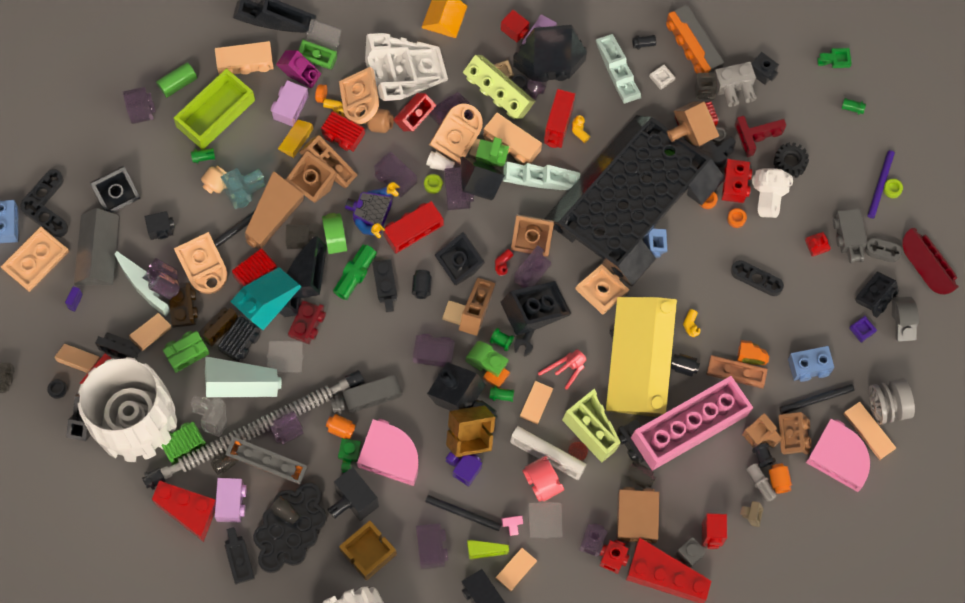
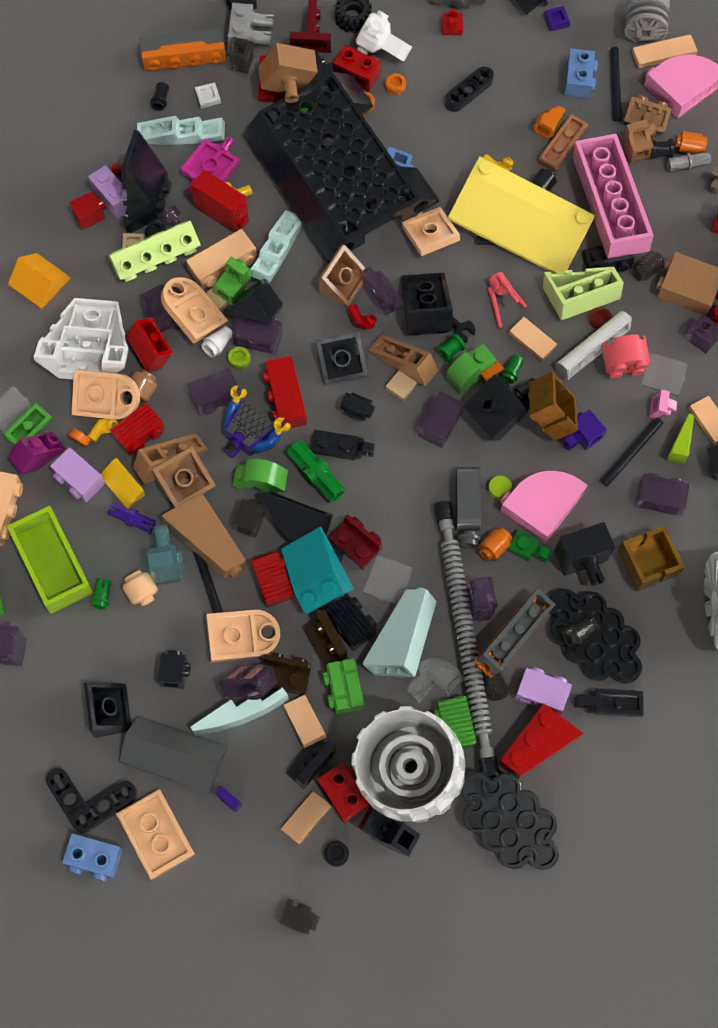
camera: 70 degrees left, 0 degrees up
(117, 504) = (509, 820): none -> black plate
(270, 154) = (132, 517): none -> dark purple pin
(393, 416) = (499, 487): none -> lime tile
(596, 101) = (212, 158): none -> dark pink plate

